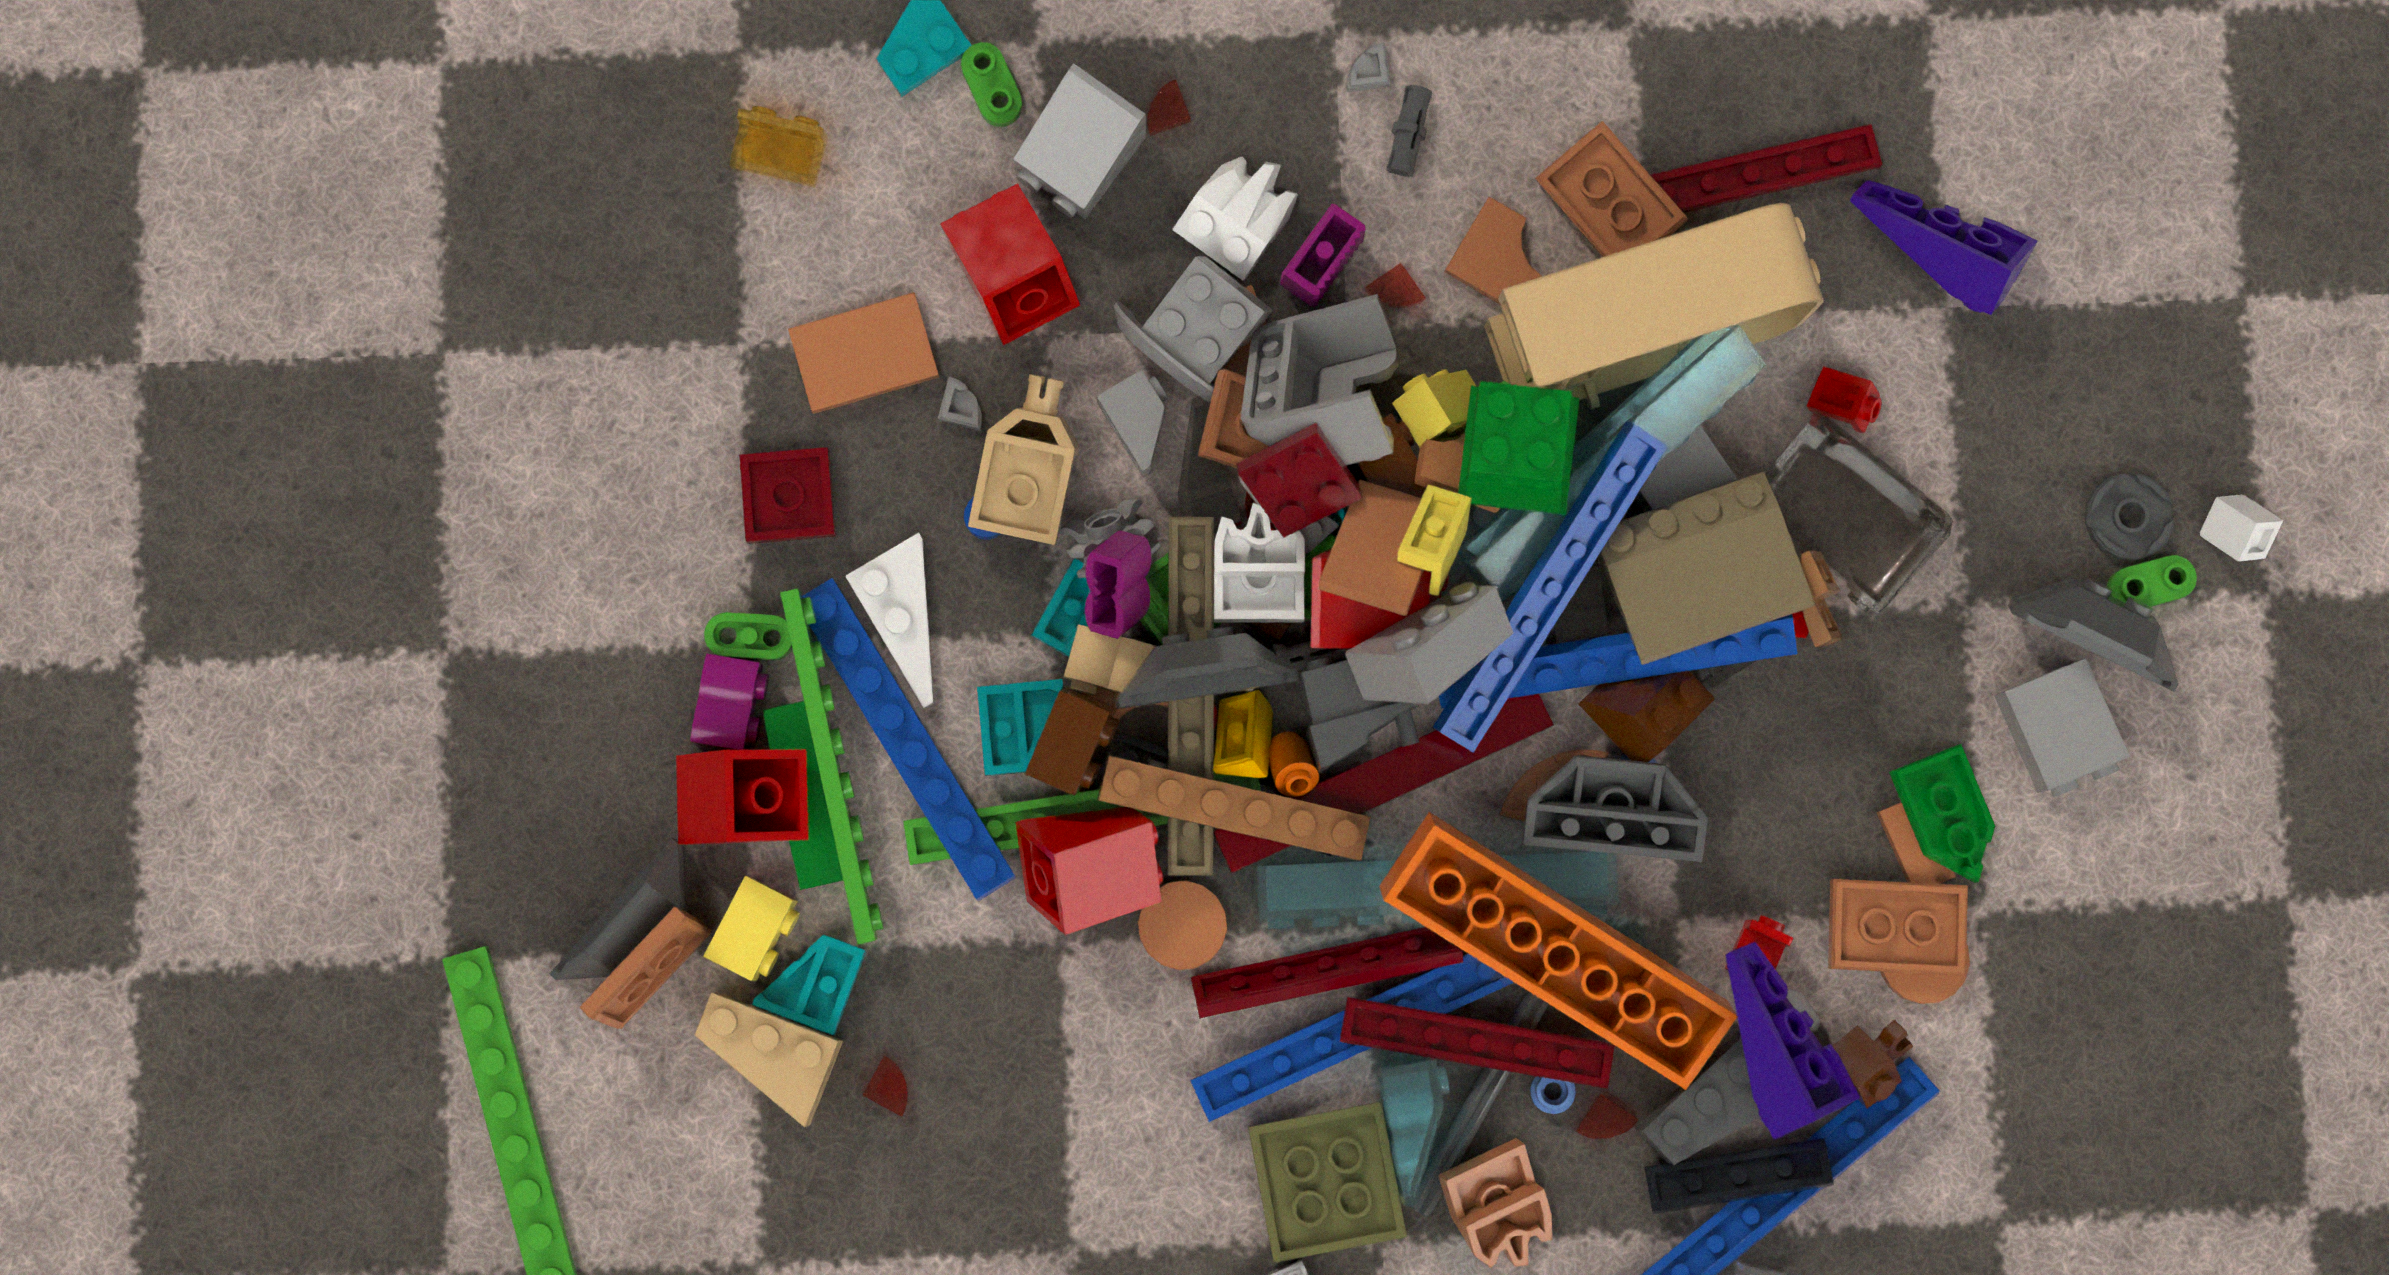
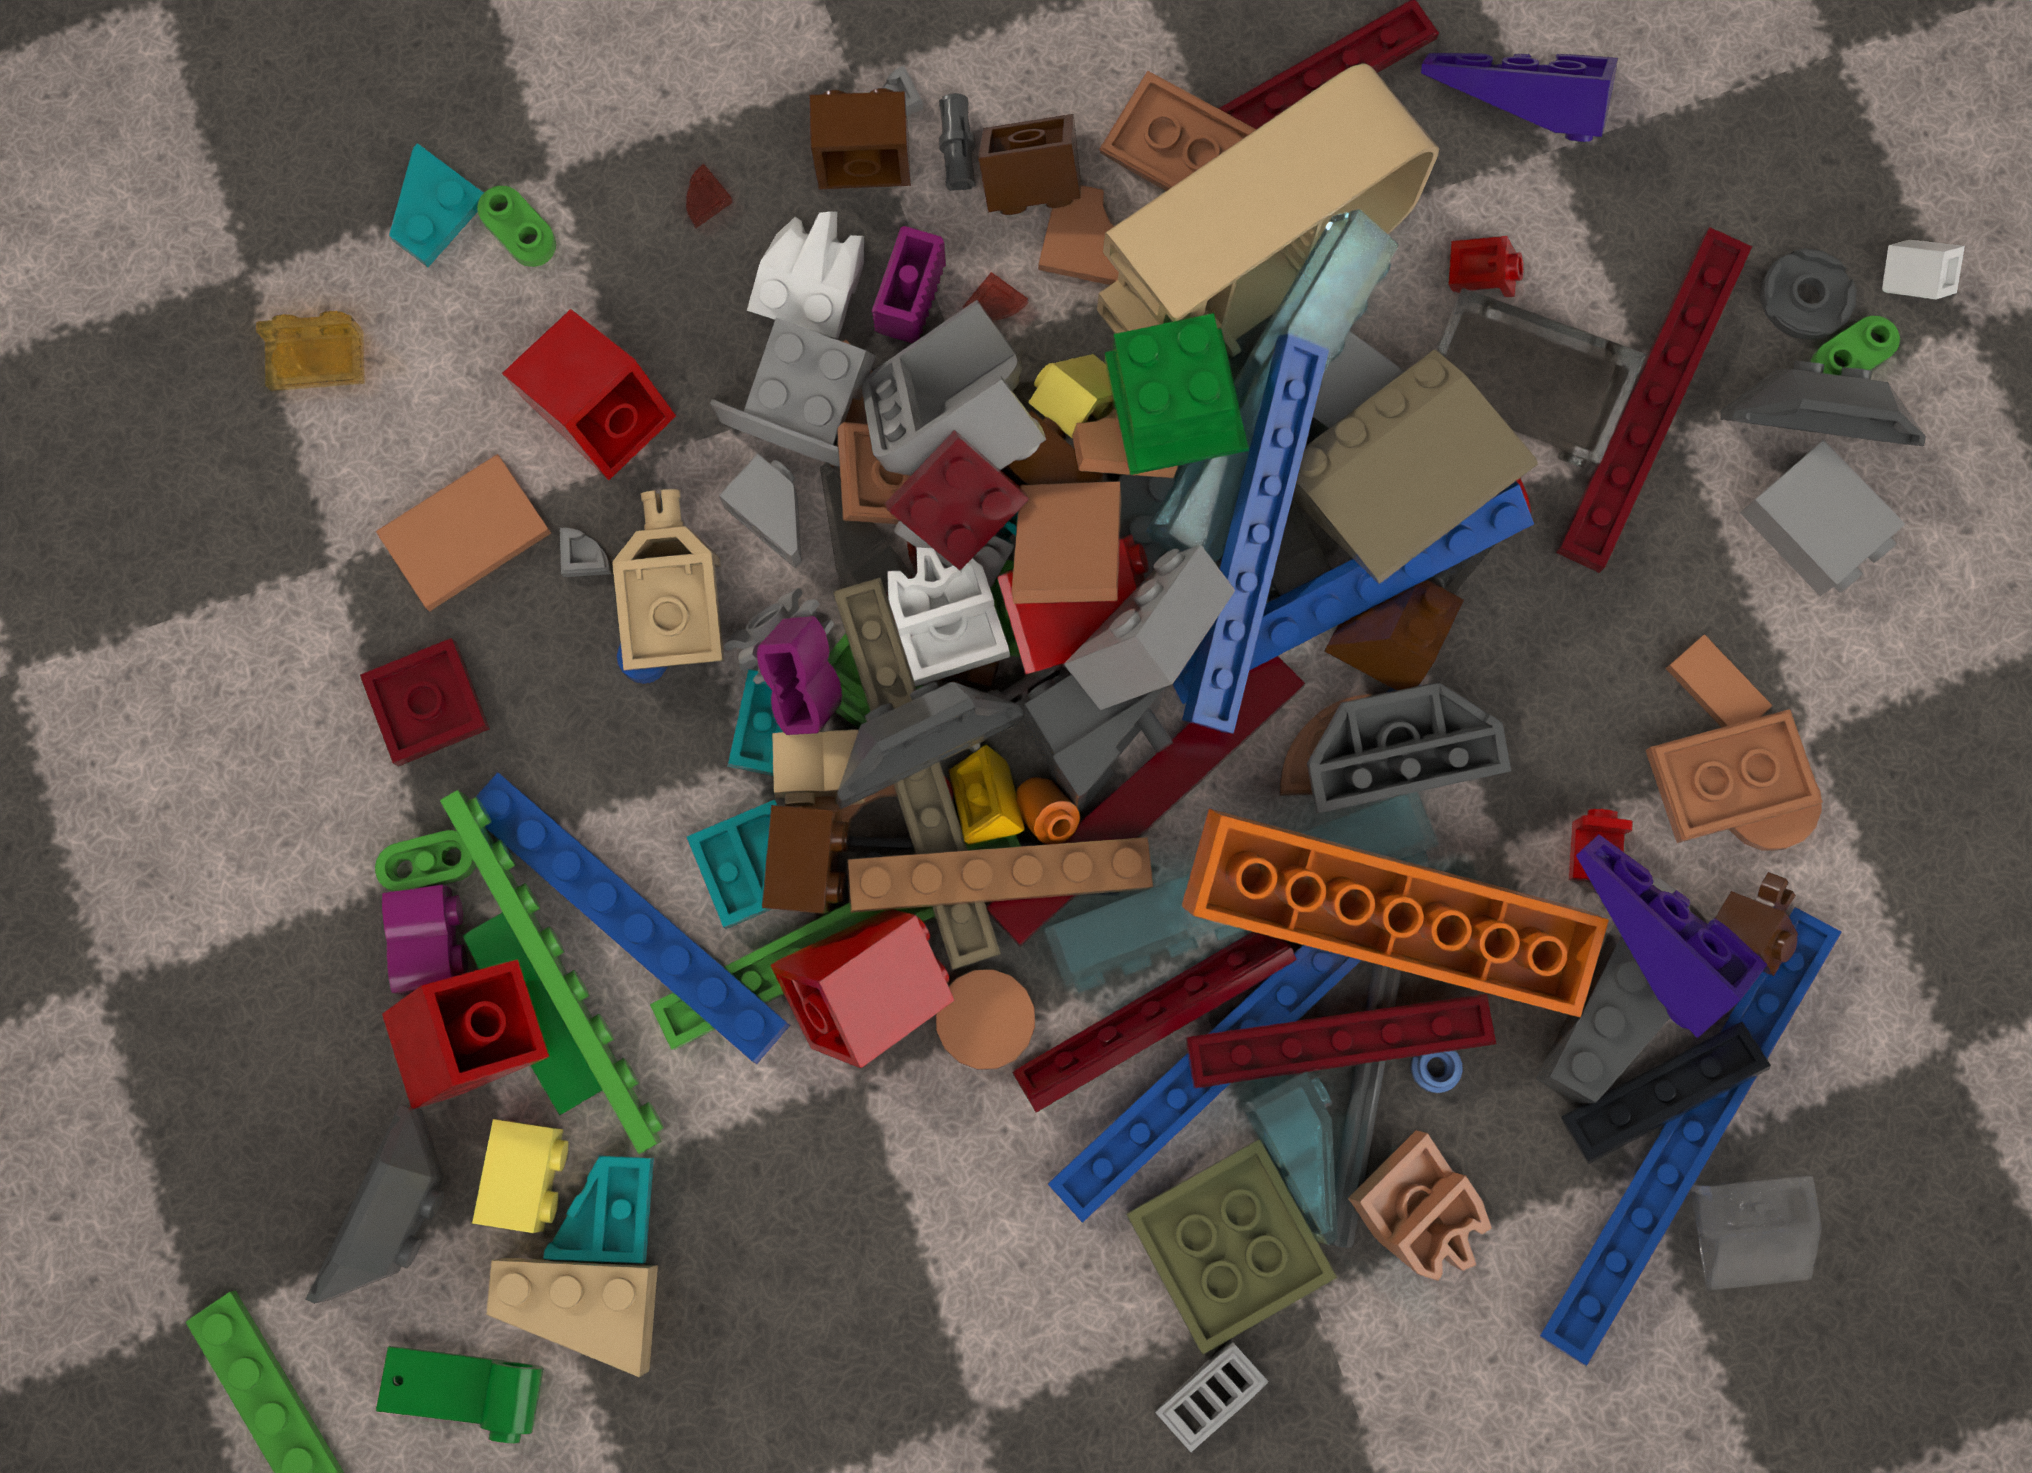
camera: 15 degrees left, 5 degrees down
(646, 969) = (411, 1258): nougat tile -> none
(654, 1089) = (462, 1389): none -> green door
(888, 1087) = (722, 1300): clear red tile -> none
(896, 602) = (573, 775): white wing -> none
(1080, 143) = (623, 248): light grey slope -> none
(1322, 107) = (860, 139): none -> reddish brown brick
(1436, 534) = (1119, 510): light yellow panel -> none
(1468, 174) = (1030, 164): none -> reddish brown slope
(1605, 1120) = (1502, 1080): clear red tile -> none
(1822, 585) = (1548, 494): medium nougat slope -> none
(1946, 810) = (1738, 641): green tile -> none
(1954, 569) = (1654, 400): none -> dark red plate

